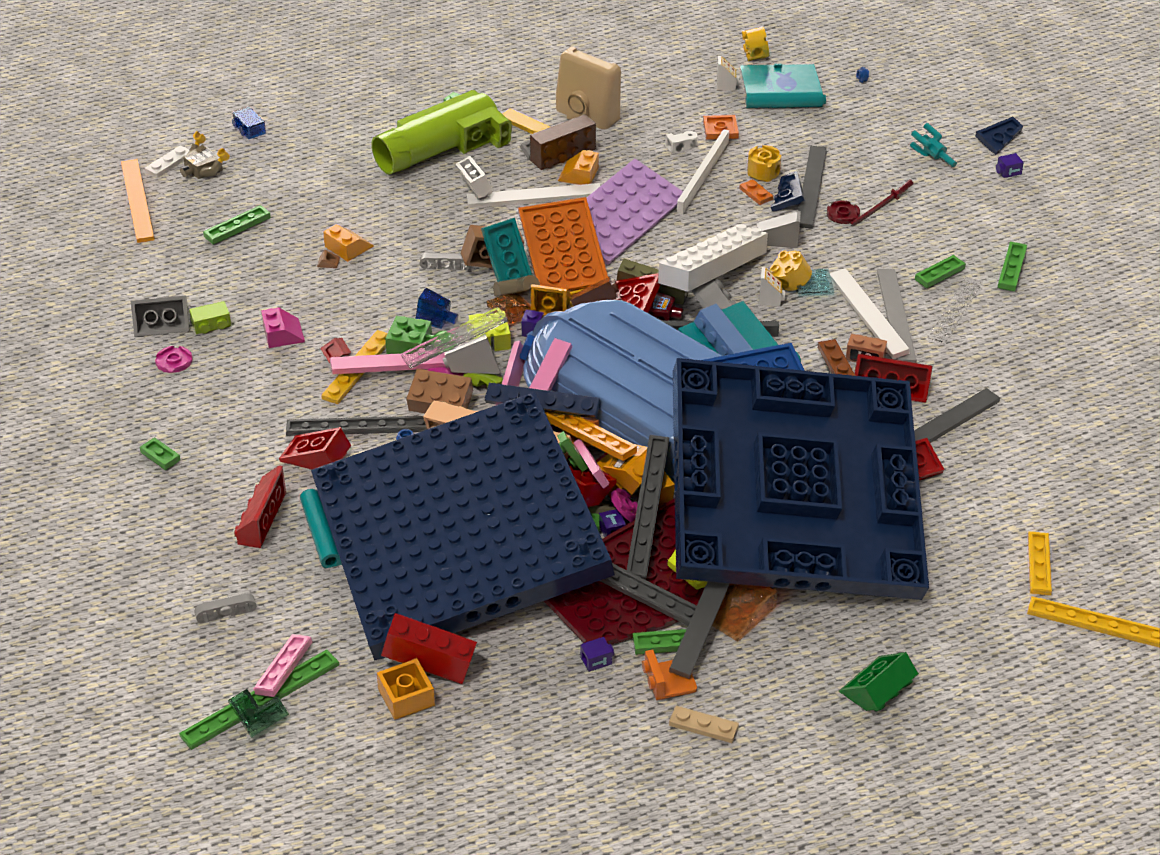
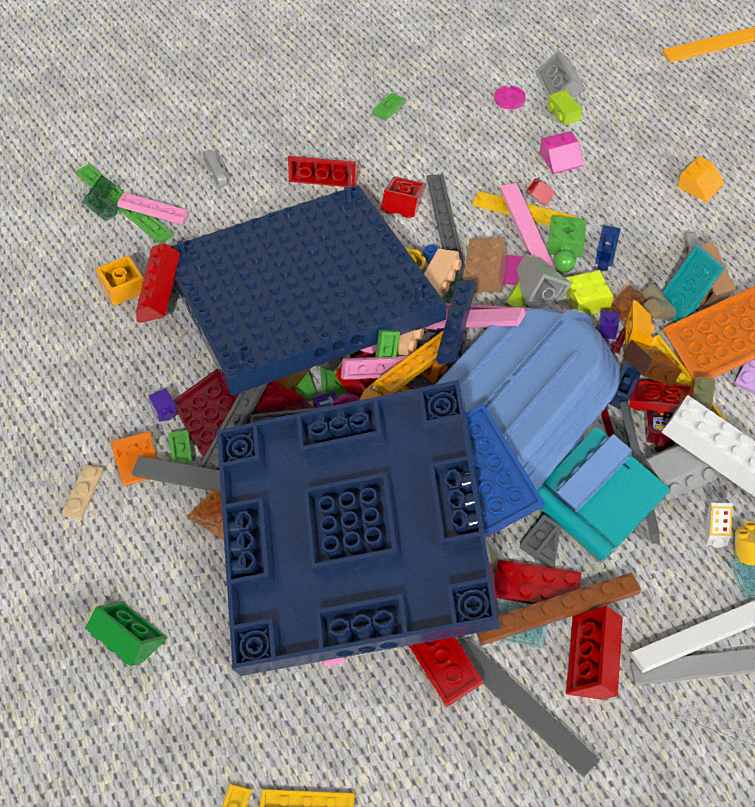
camera: 85 degrees right, 10 degrees up
(236, 224) = (704, 106): bright green plate -> none
(328, 260) = (672, 172): medium nougat slope -> none
(454, 337) = (560, 261): clear tile -> none
(865, 345) = (635, 625): nougat brick -> none

